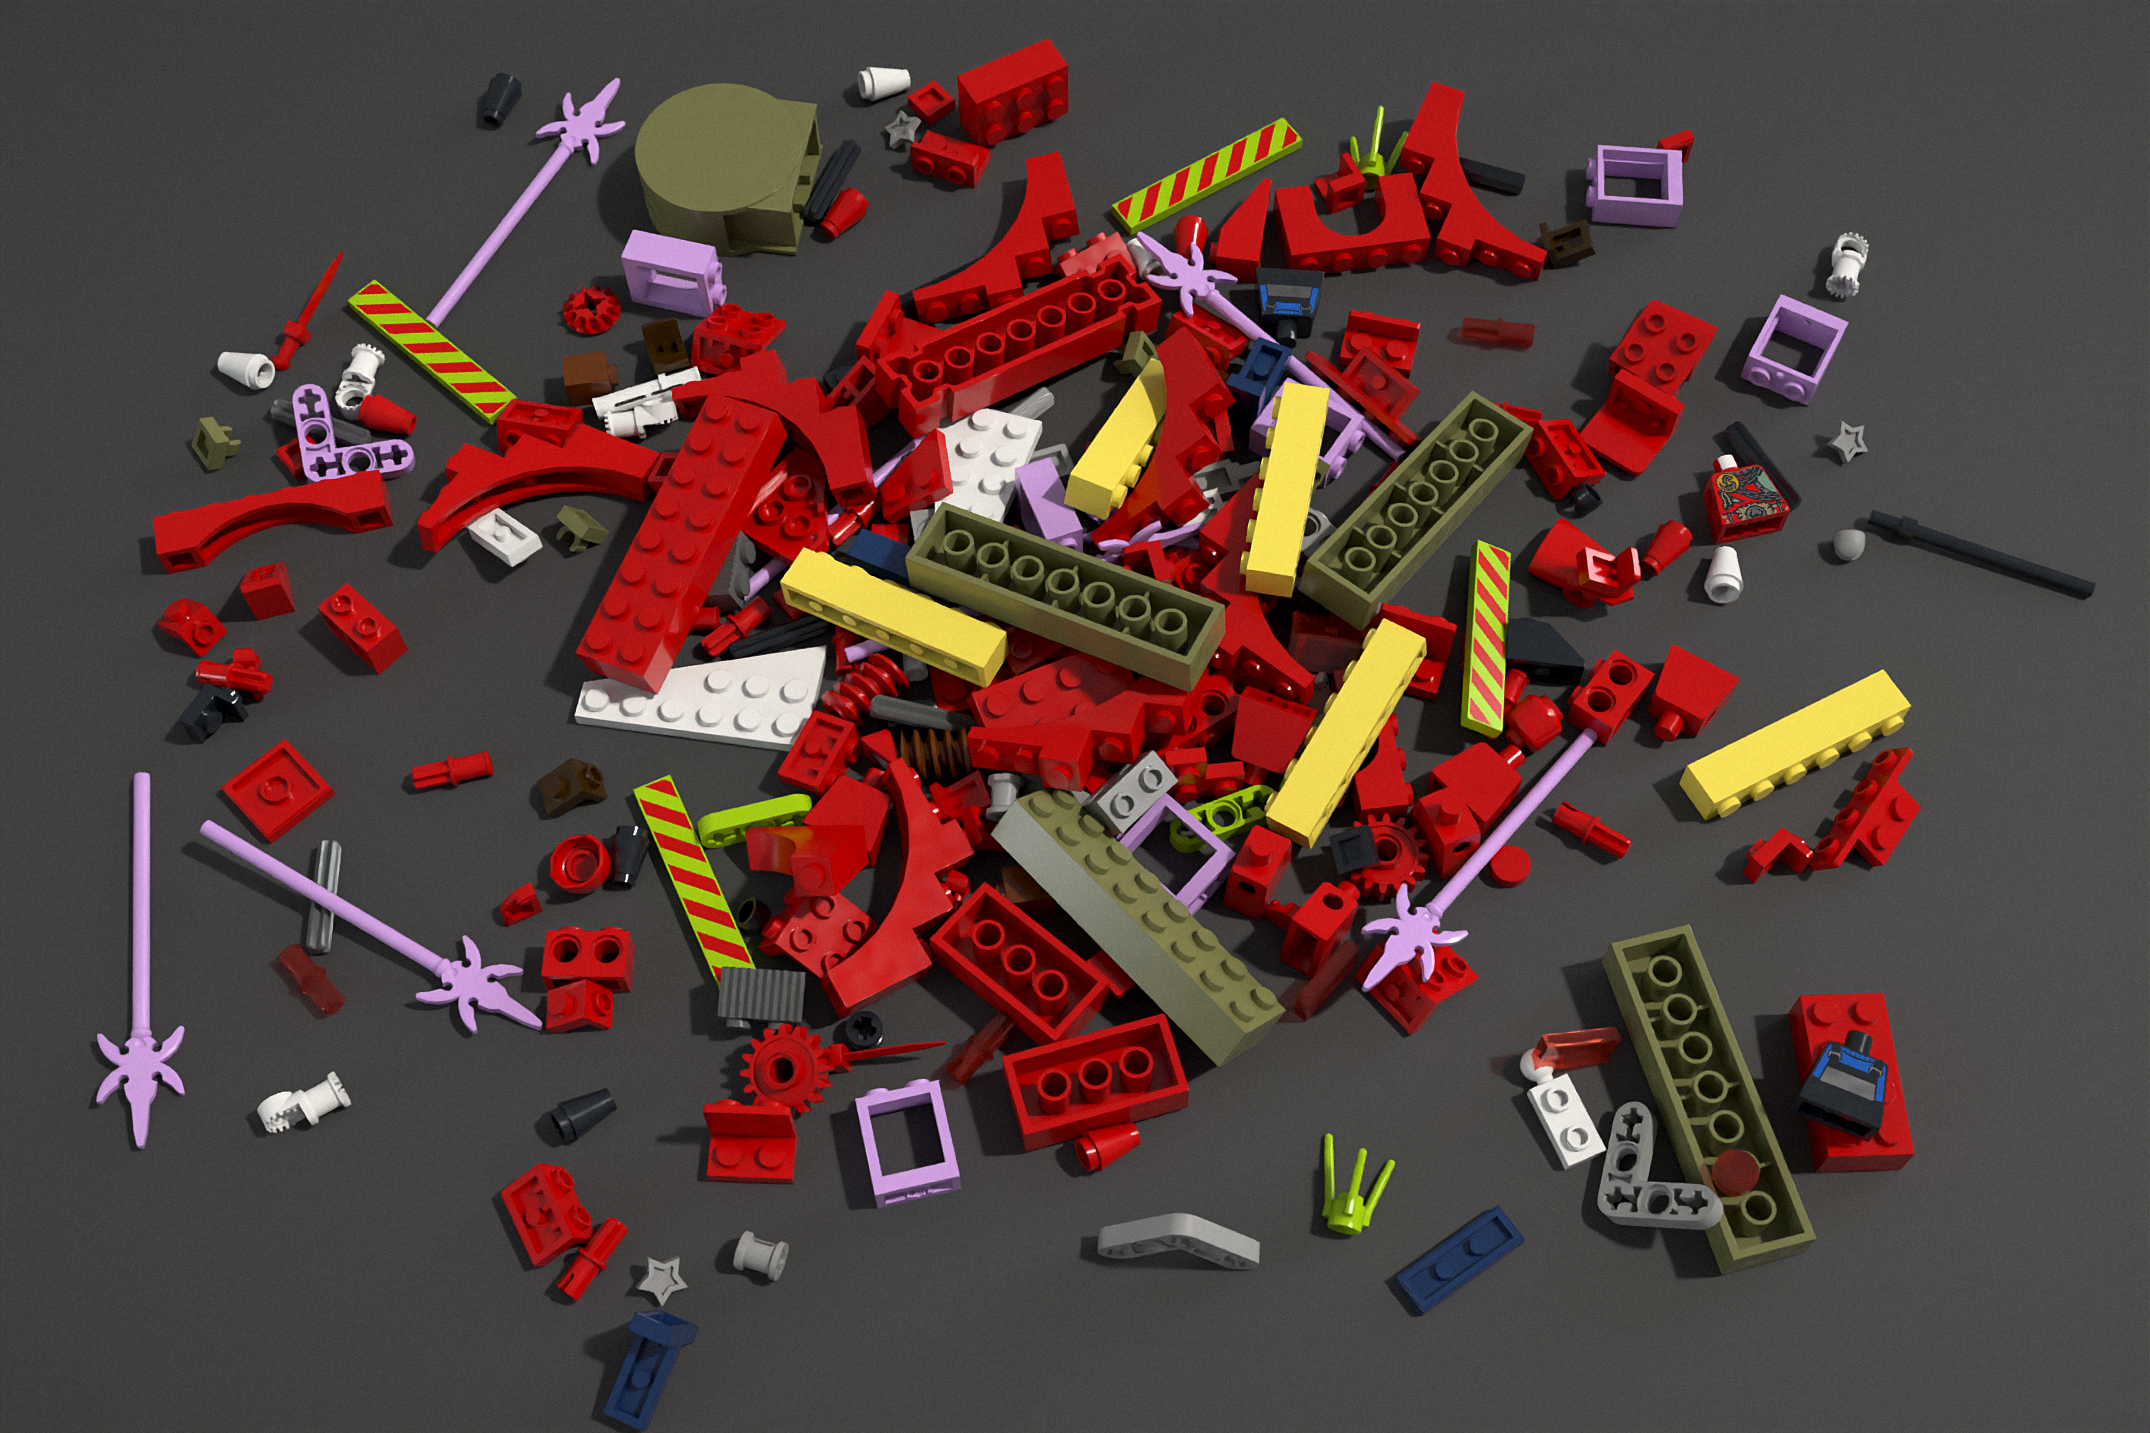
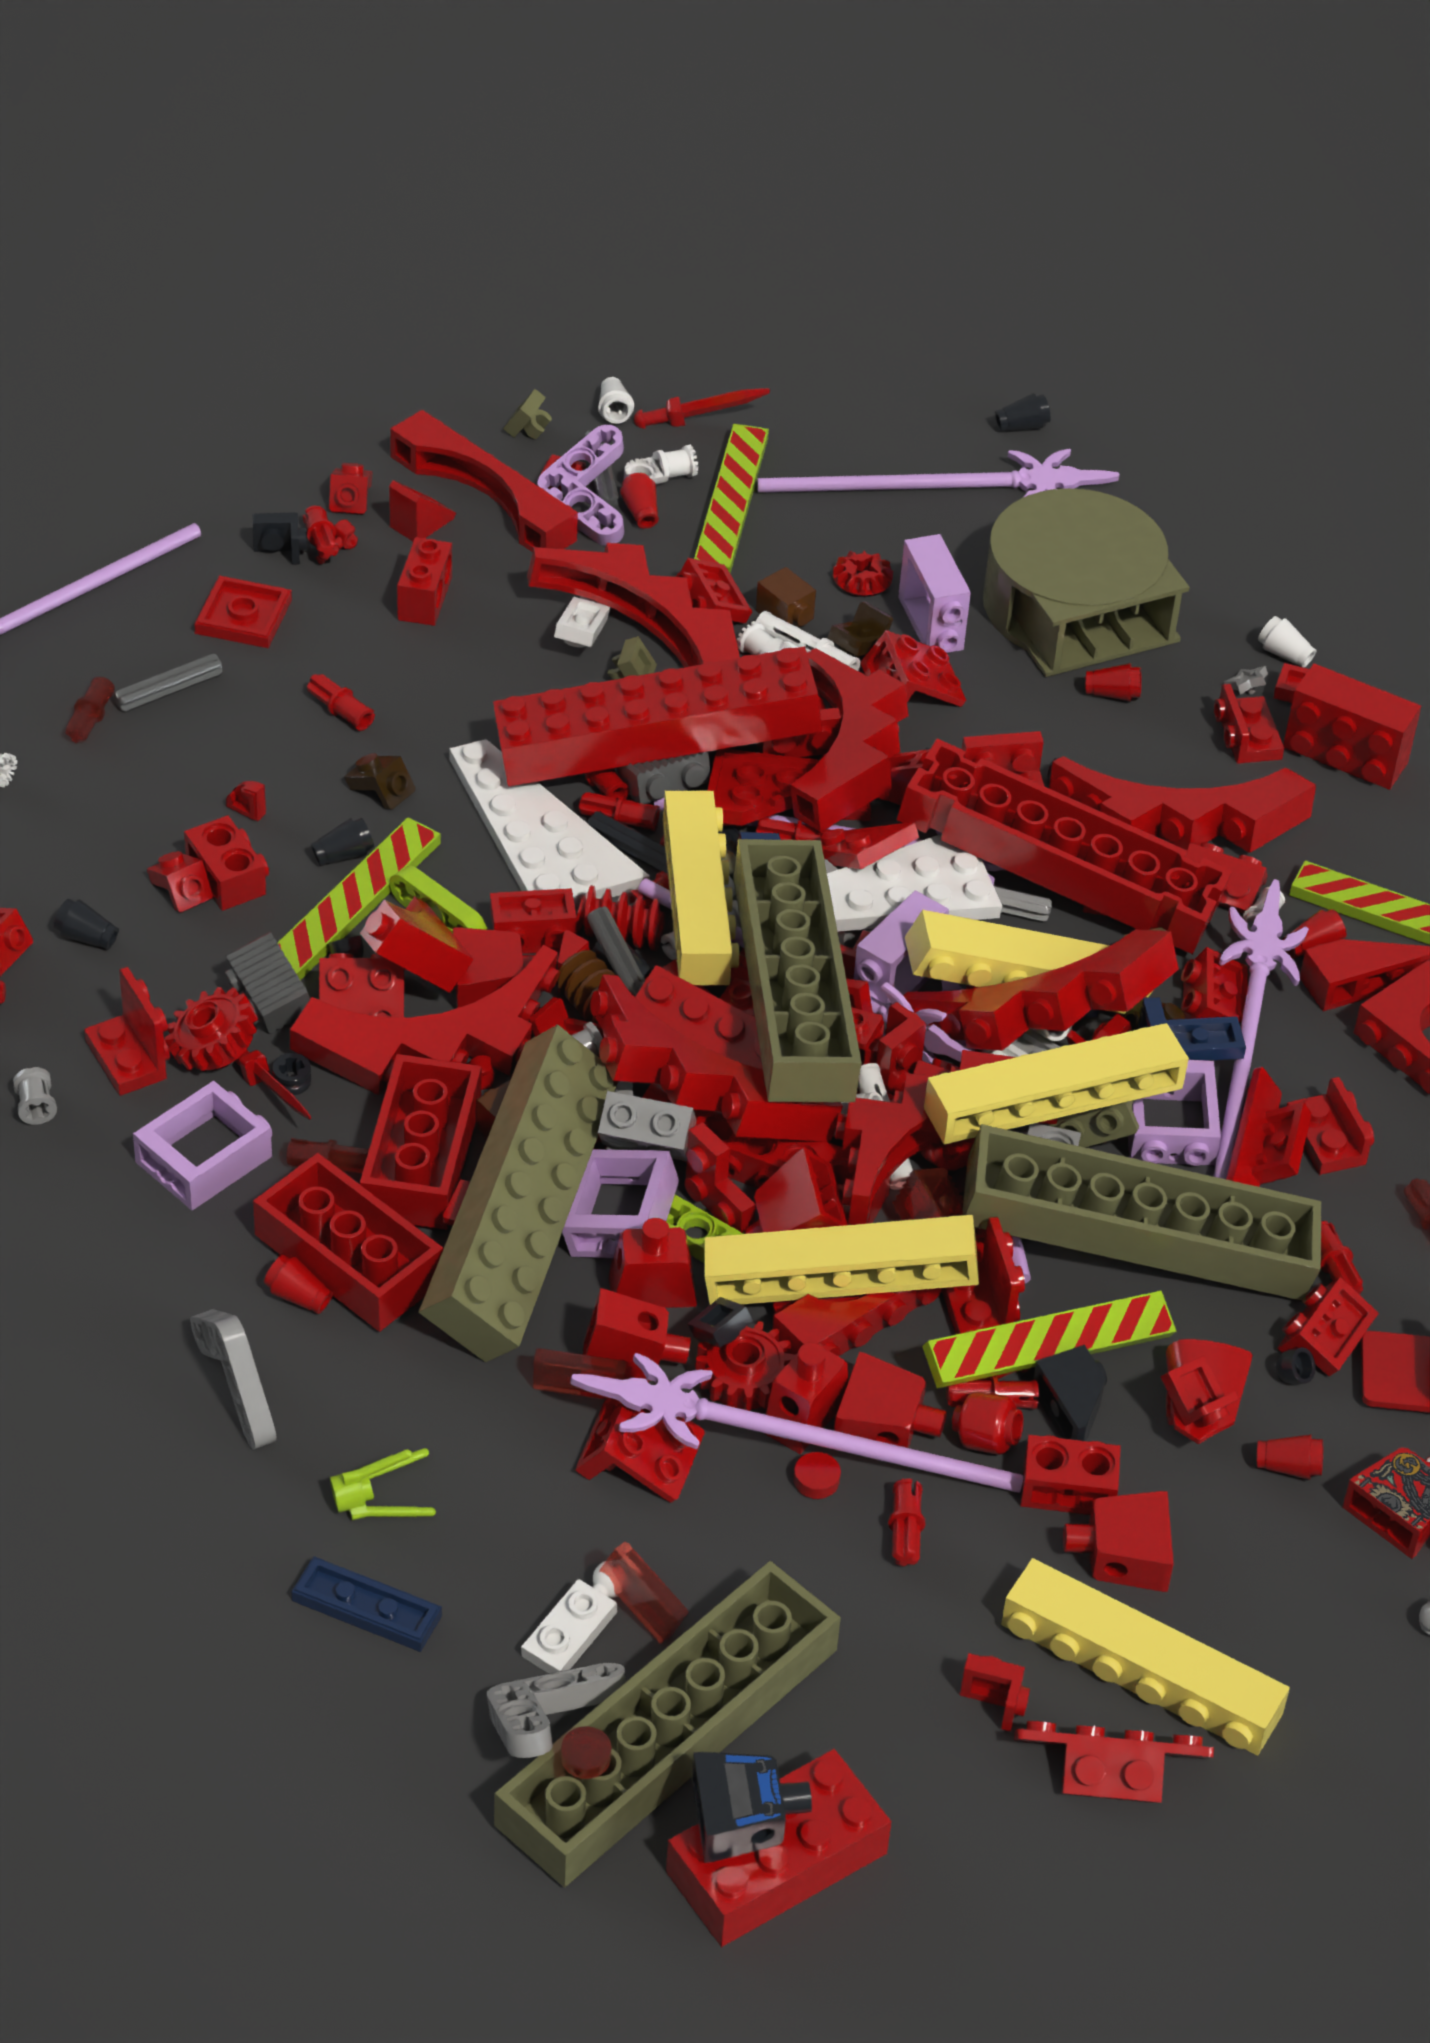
camera: 55 degrees right, 15 degrees down
(466, 983) = (153, 801): lavender piece -> none
(580, 864) = (309, 815): red hair -> none
(831, 181) = (1150, 658): black axle -> none
(1287, 302) = (1311, 1036): black torso -> none
(1724, 576) = (1298, 1520): white cone -> none

